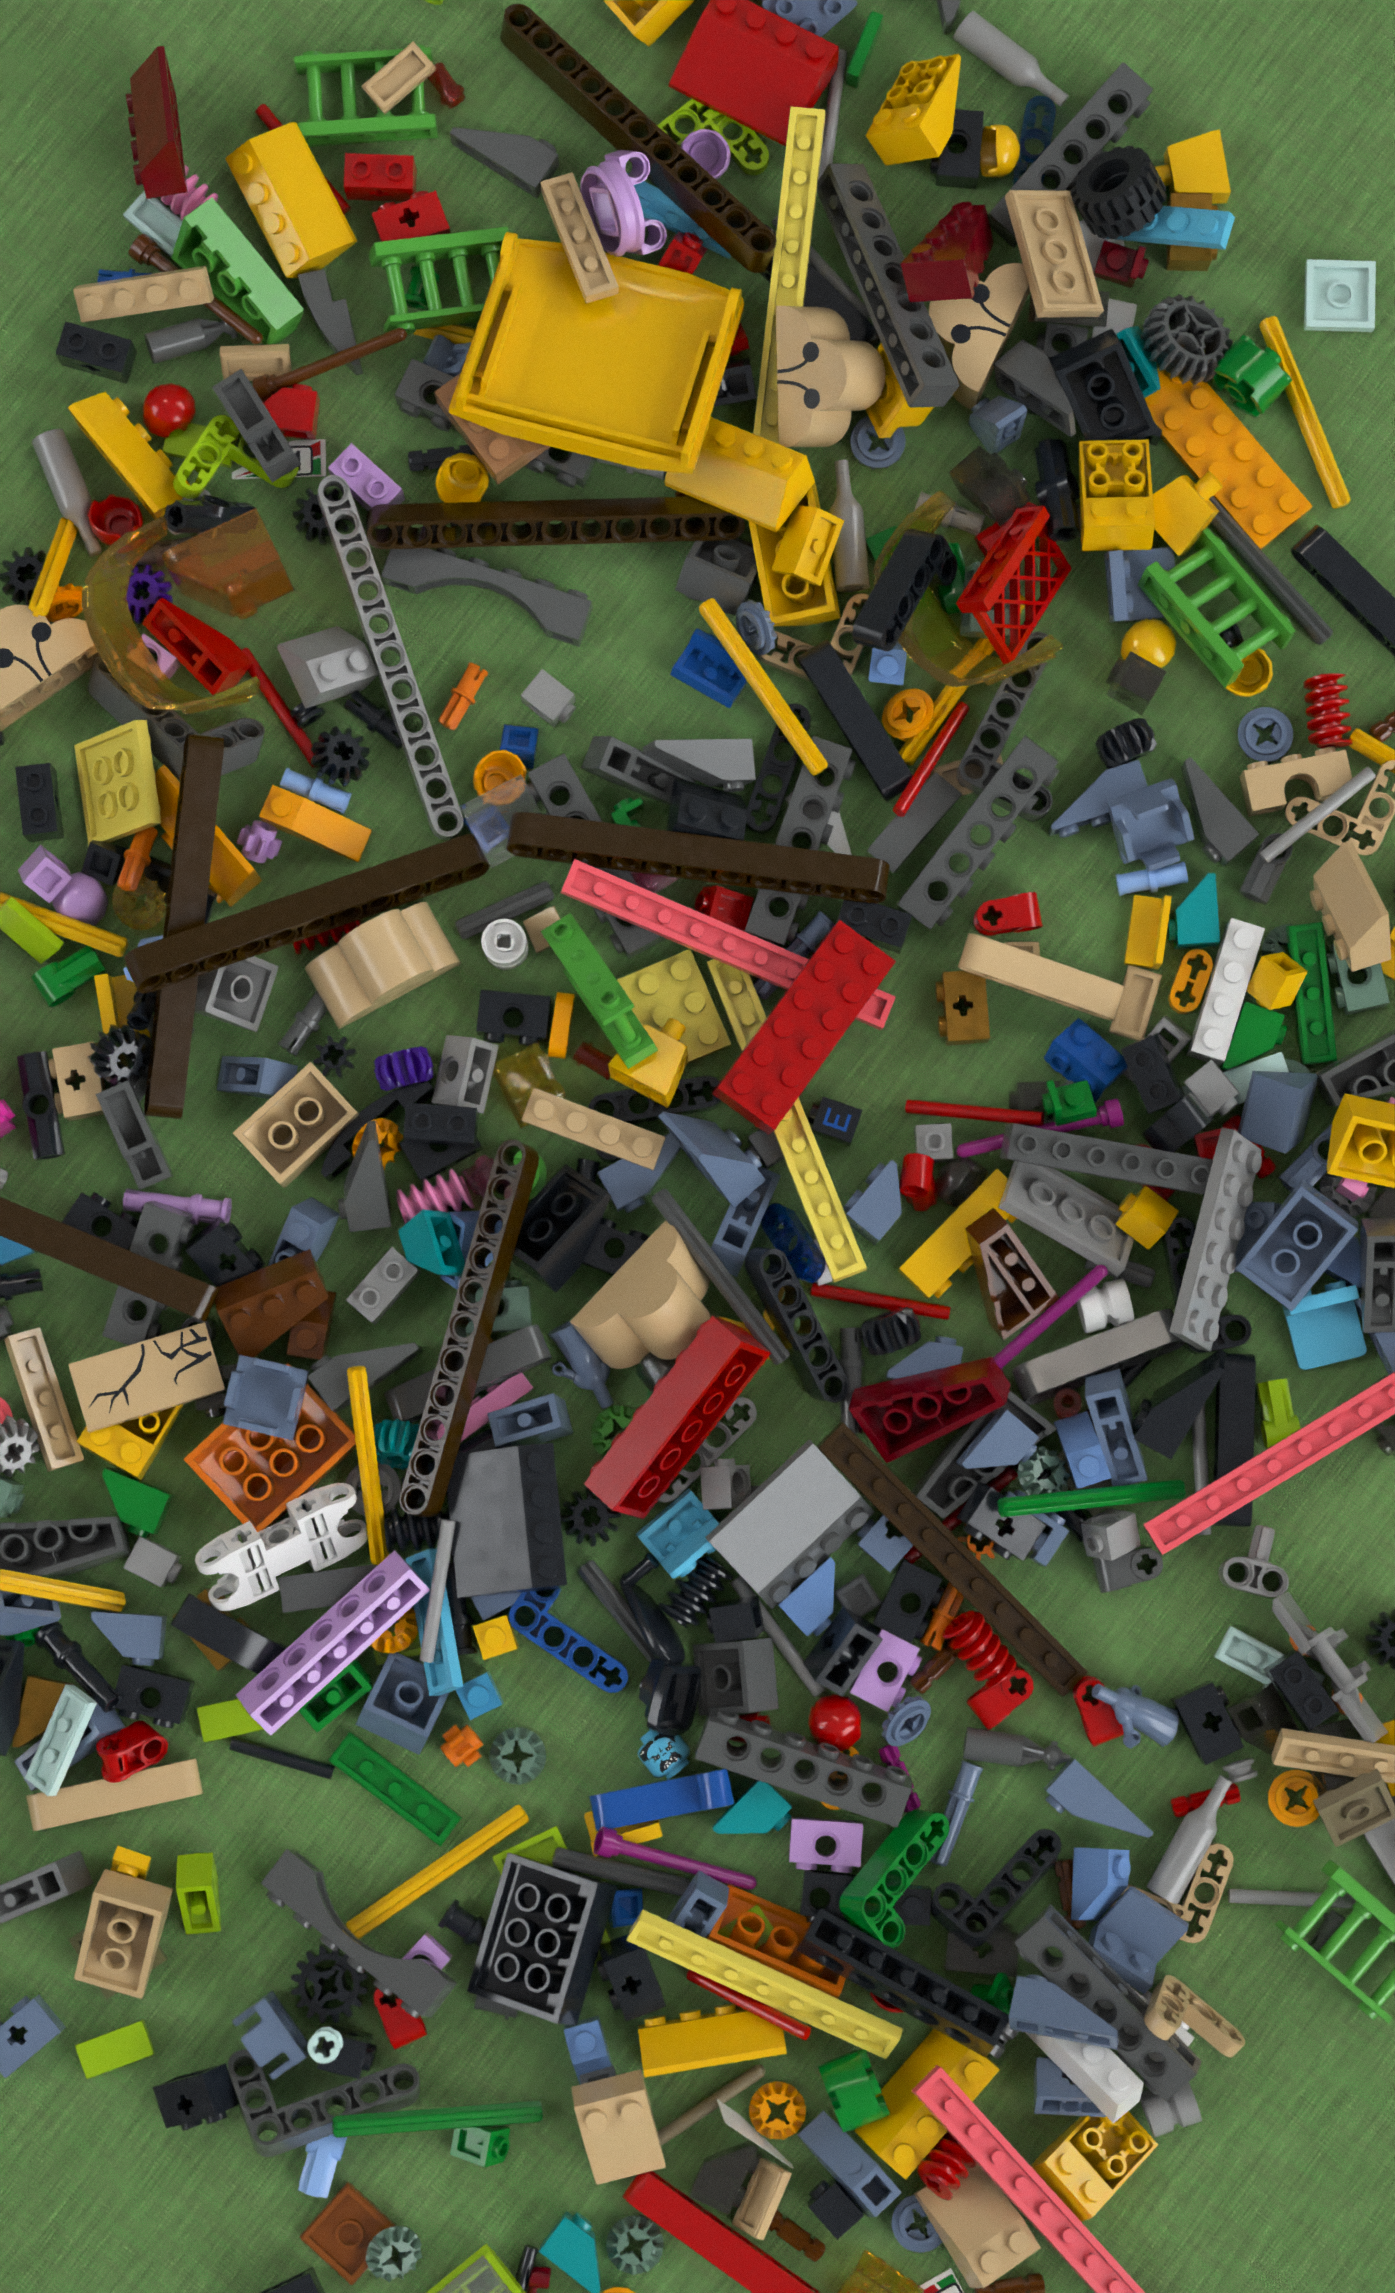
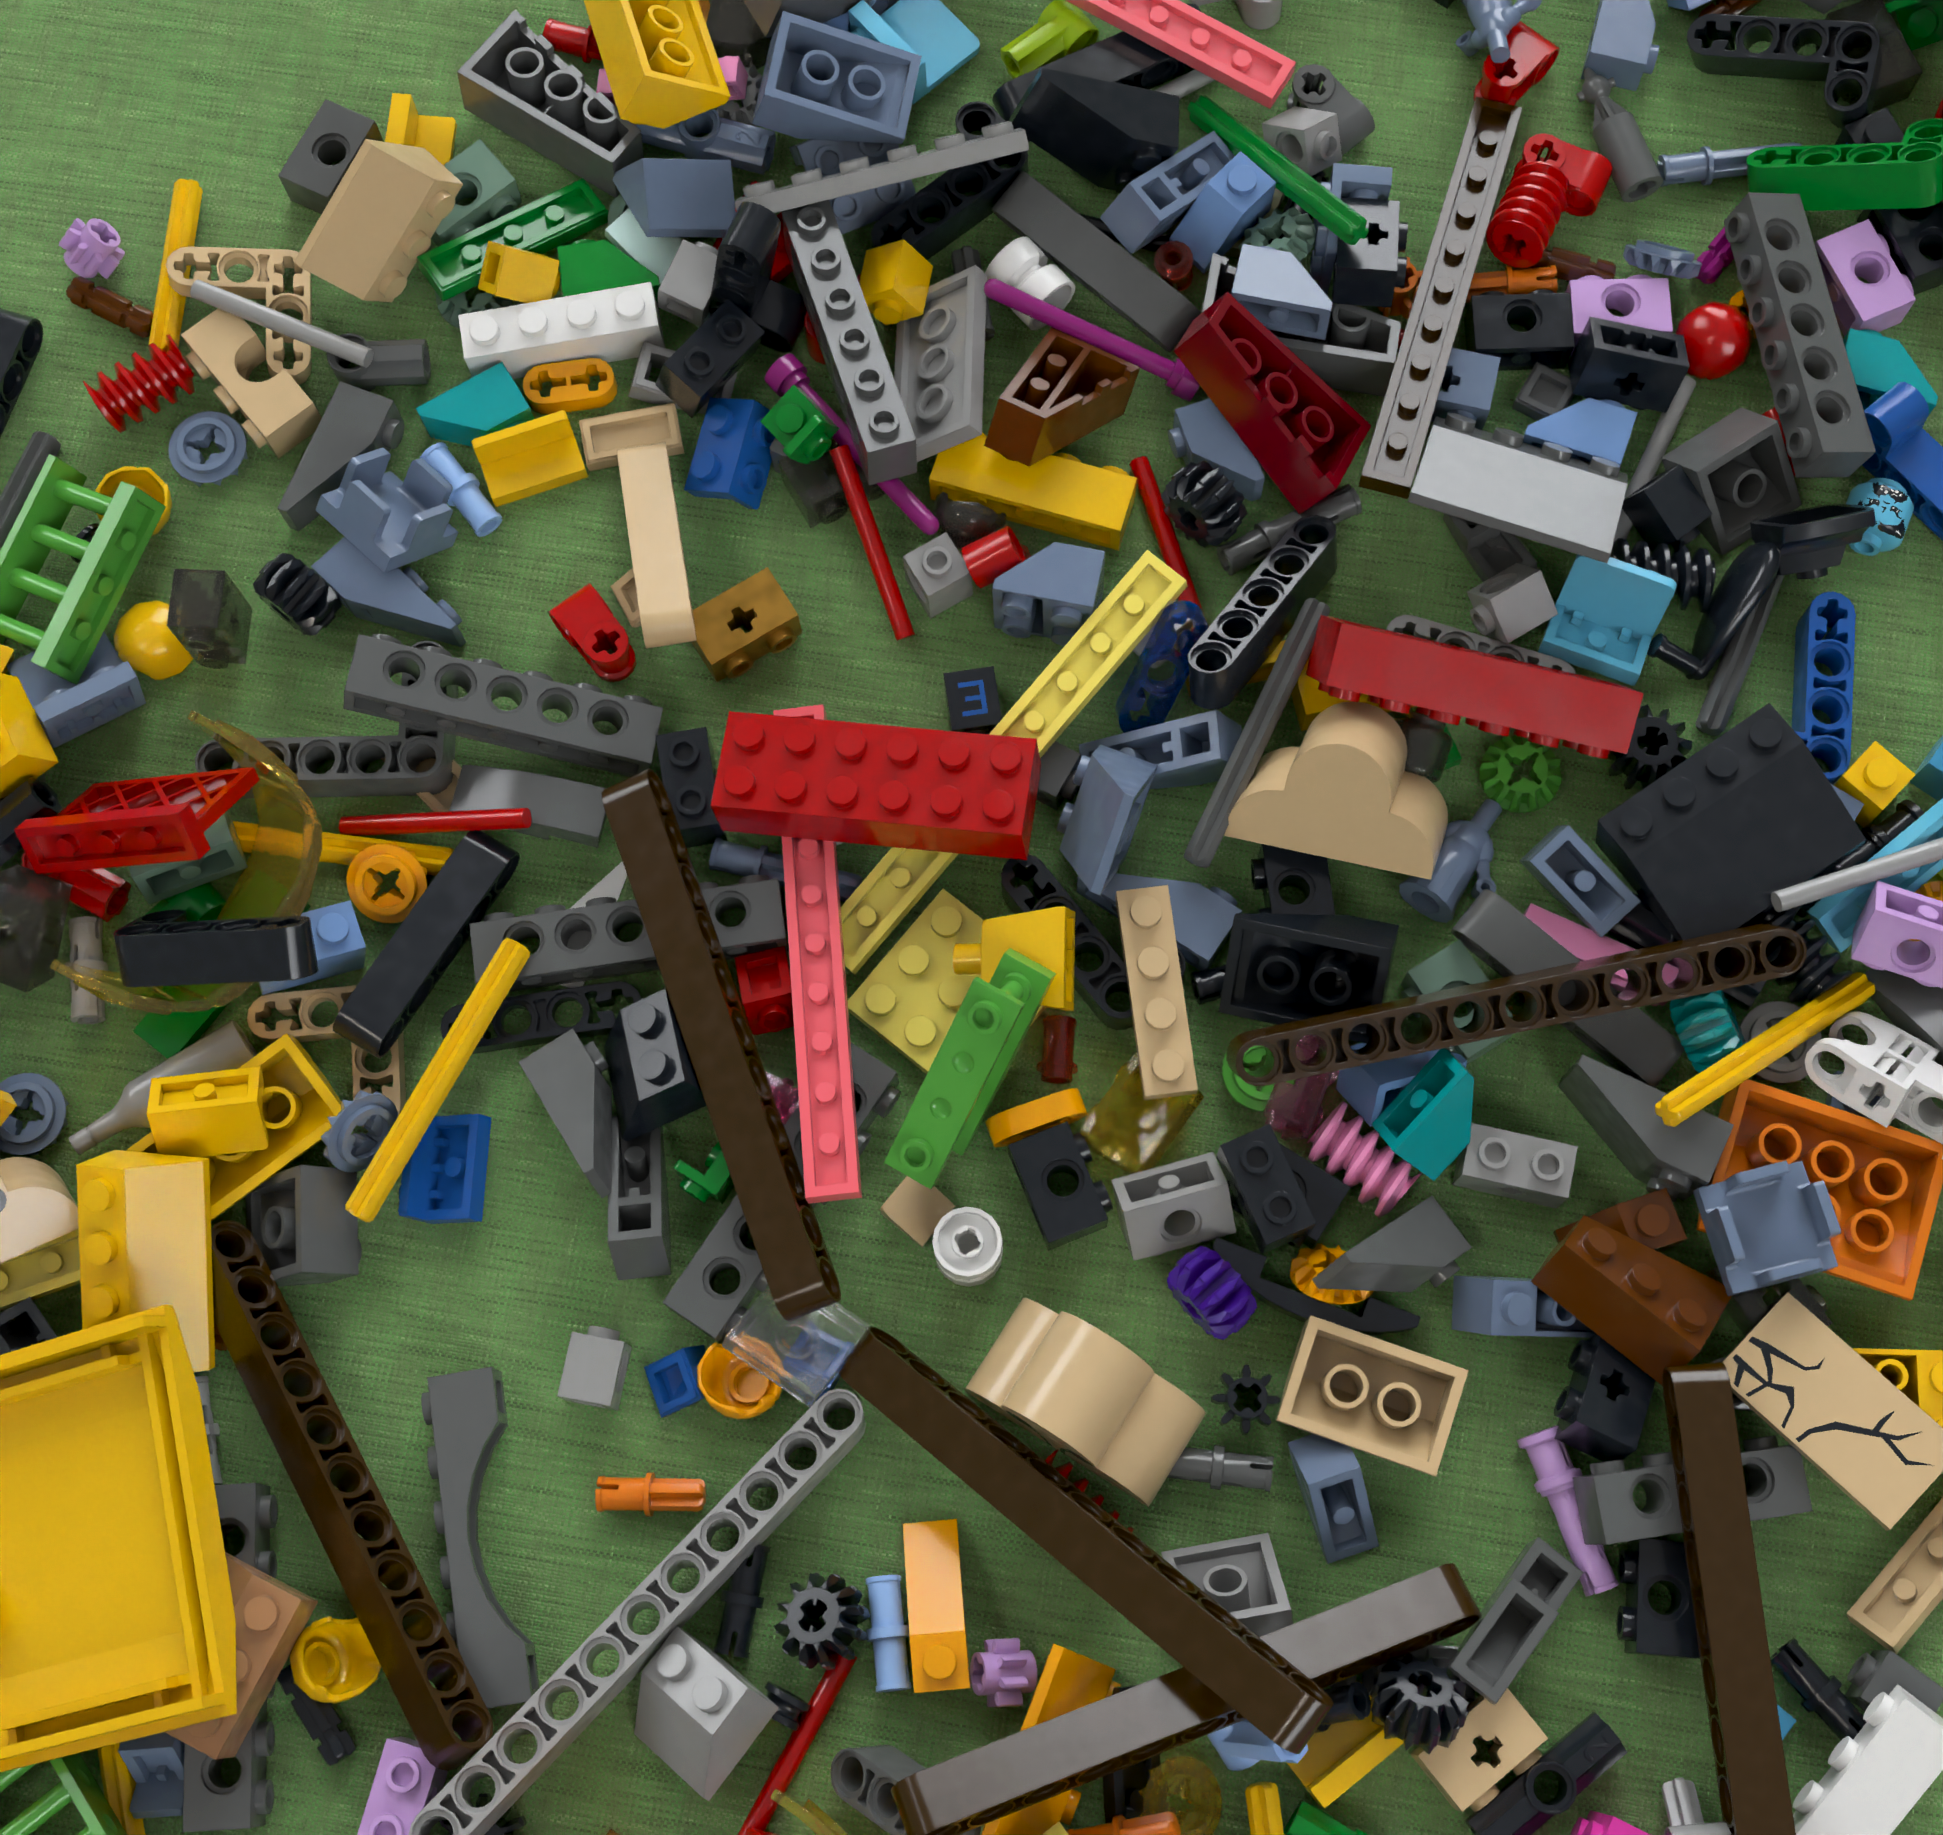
camera: 115 degrees left, 10 degrees down
(506, 908) = (919, 1278): dark grey axle -> none

